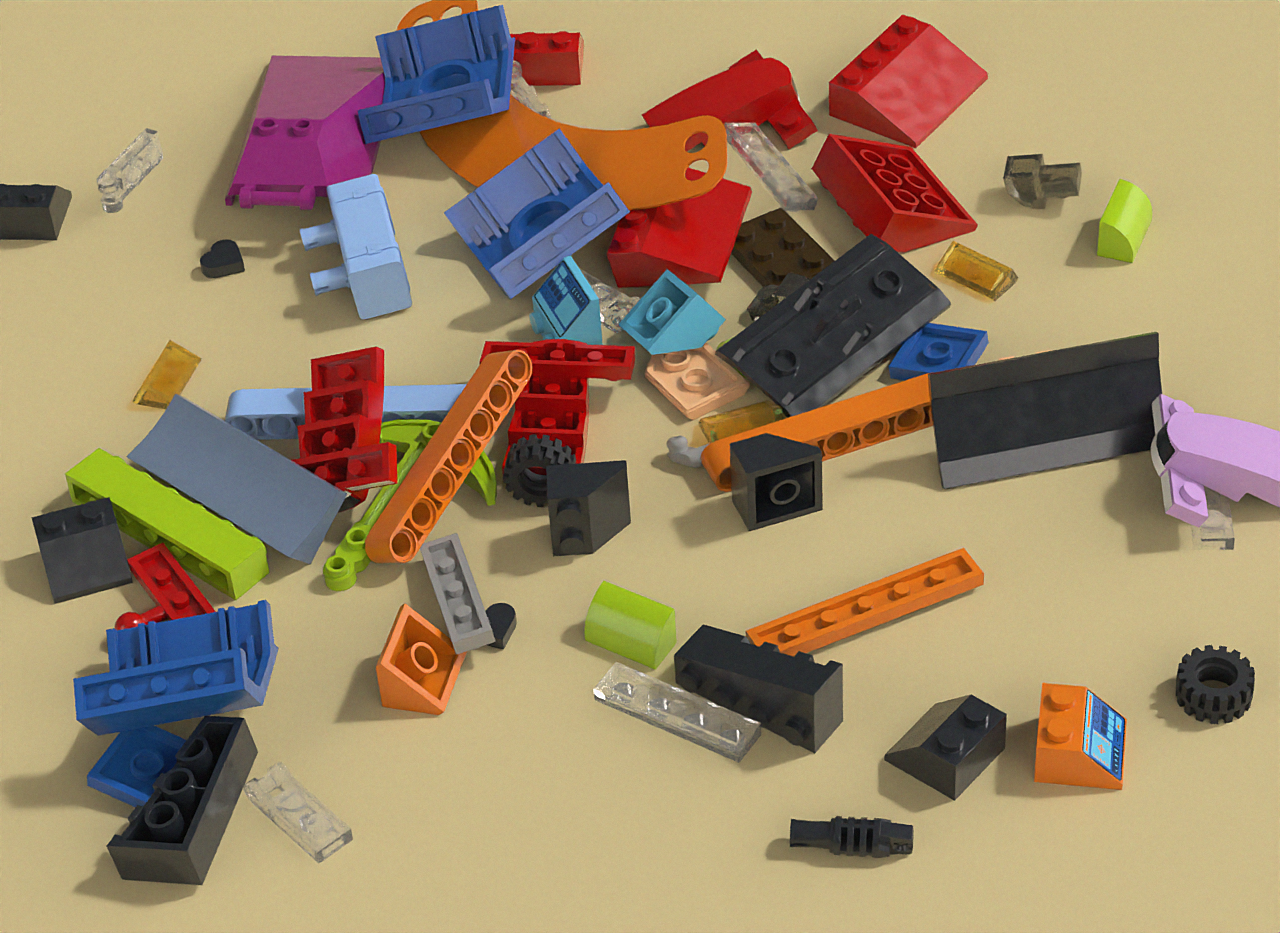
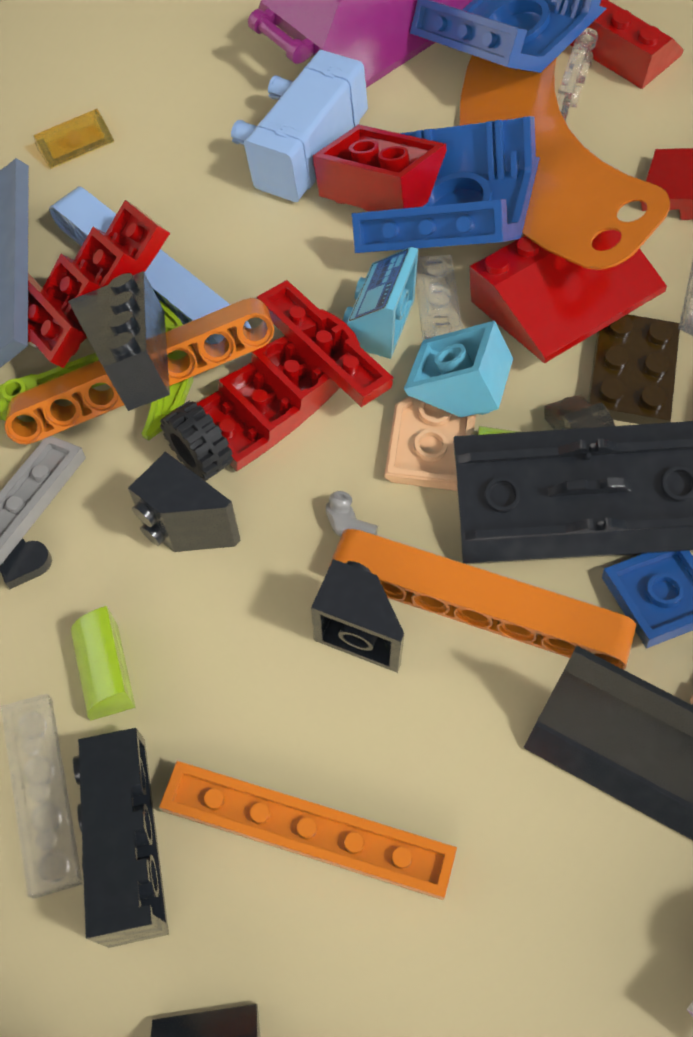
camera: 40 degrees right, 20 degrees up
(222, 260) = (218, 66): black tile -> none
(441, 420) = (128, 337): none -> black wedge
(463, 239) = (378, 169): none -> red slope
(739, 420) = (419, 523): clear yellow slope -> none

